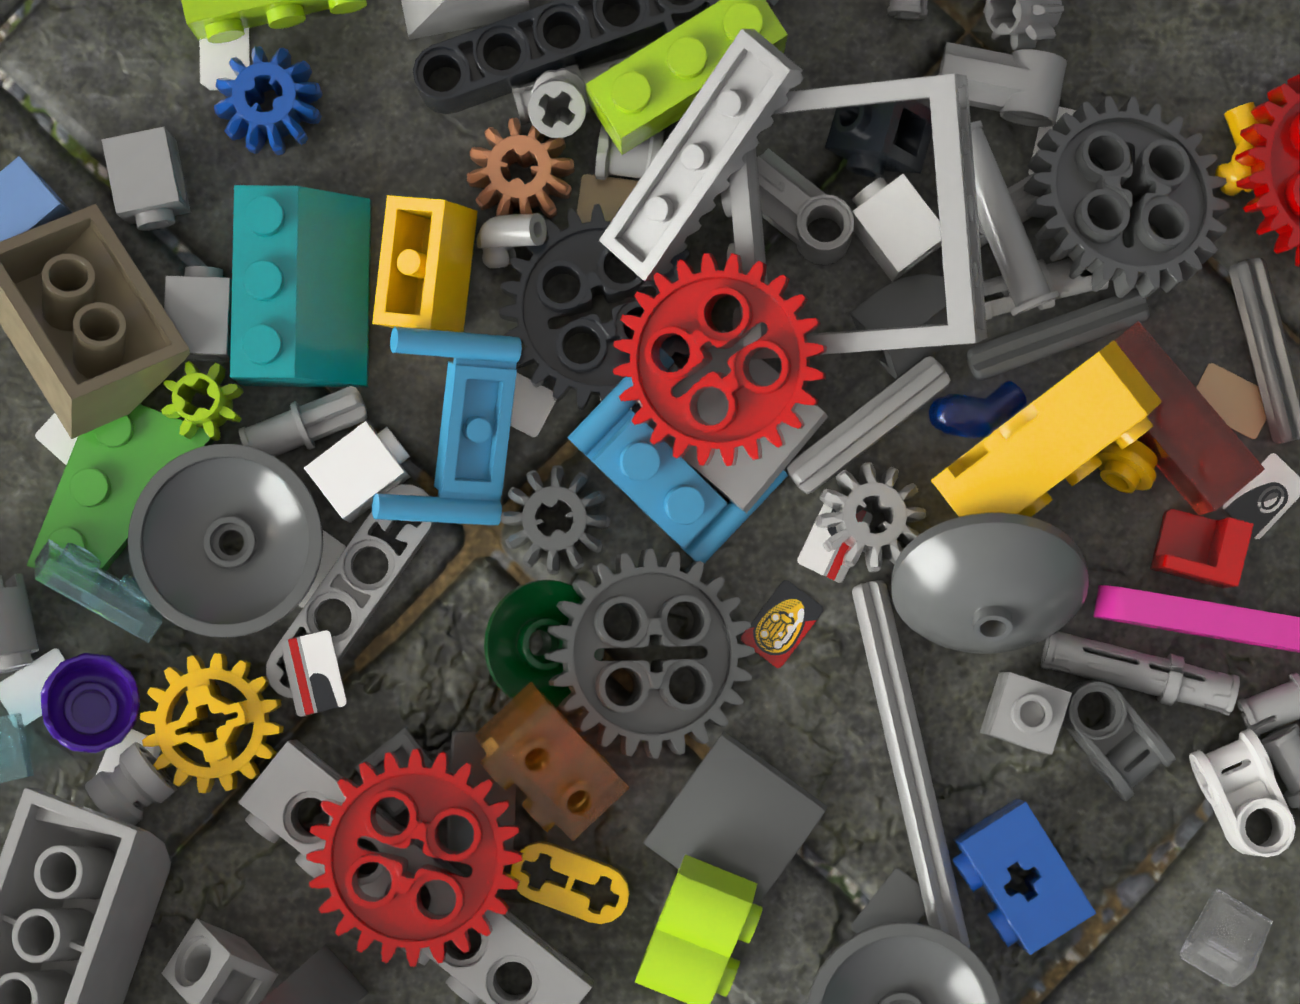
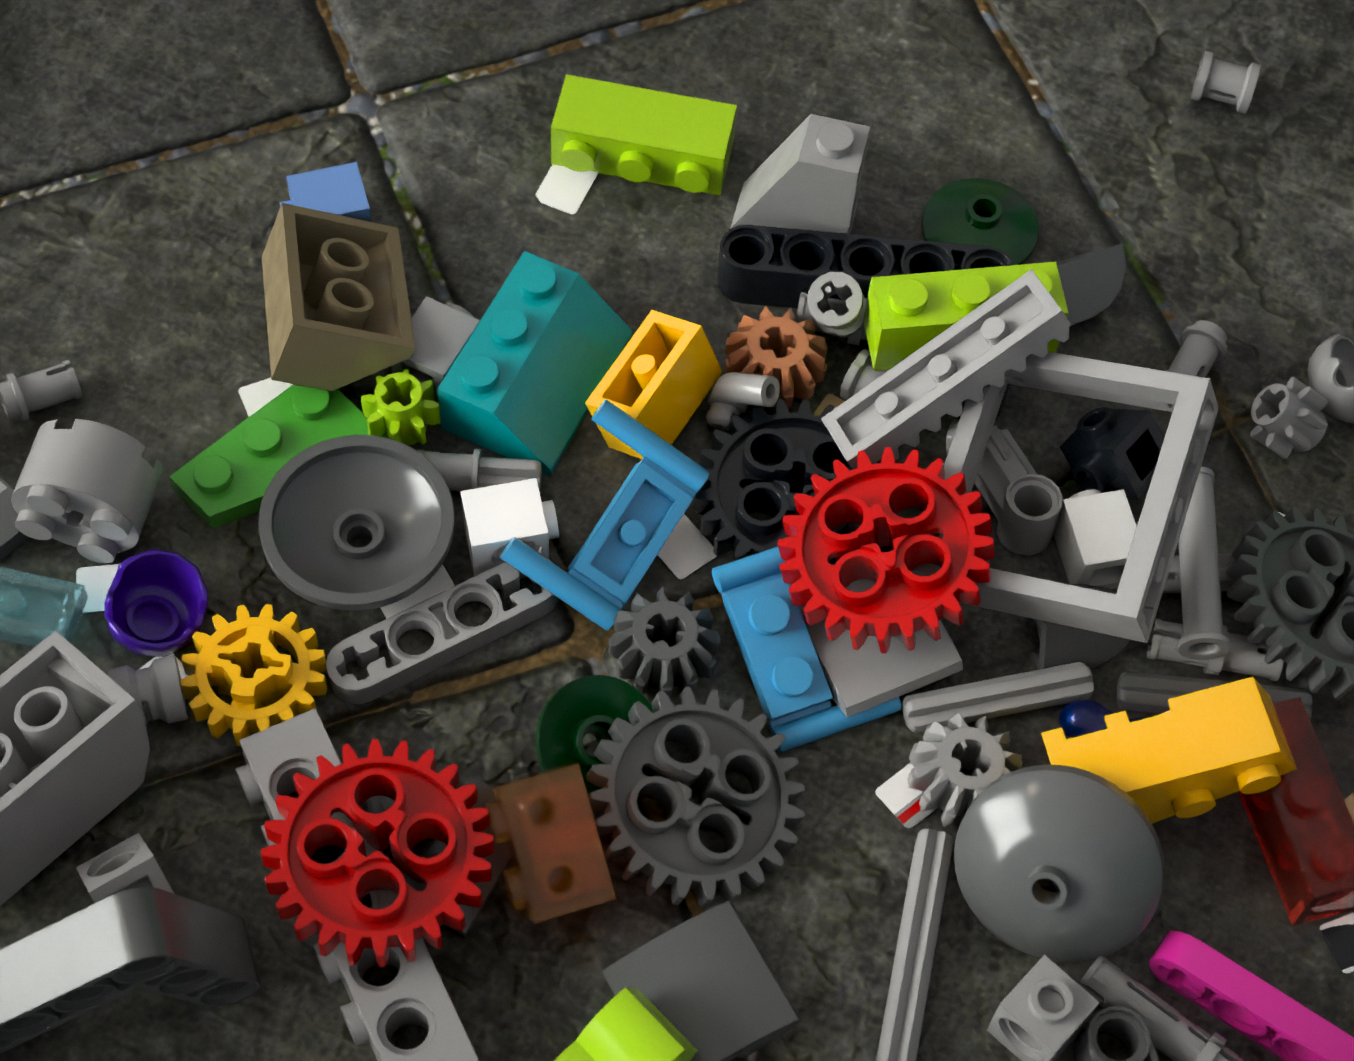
camera: 20 degrees right, 25 degrees down
(78, 577) = (210, 485): clear light blue plate -> none
(146, 178) = (451, 230): light grey brick -> none
(247, 94) = (586, 219): blue gear -> none
(313, 673) = (371, 673): sticker -> none
(565, 897) = (522, 967): yellow beam -> none
(782, 624) = (835, 840): sticker -> none
(1018, 84) = (1256, 476): light grey piece -> none
(1128, 467) = (1238, 836): yellow plate -> none
(1202, 548) = (1282, 950): red panel -> none

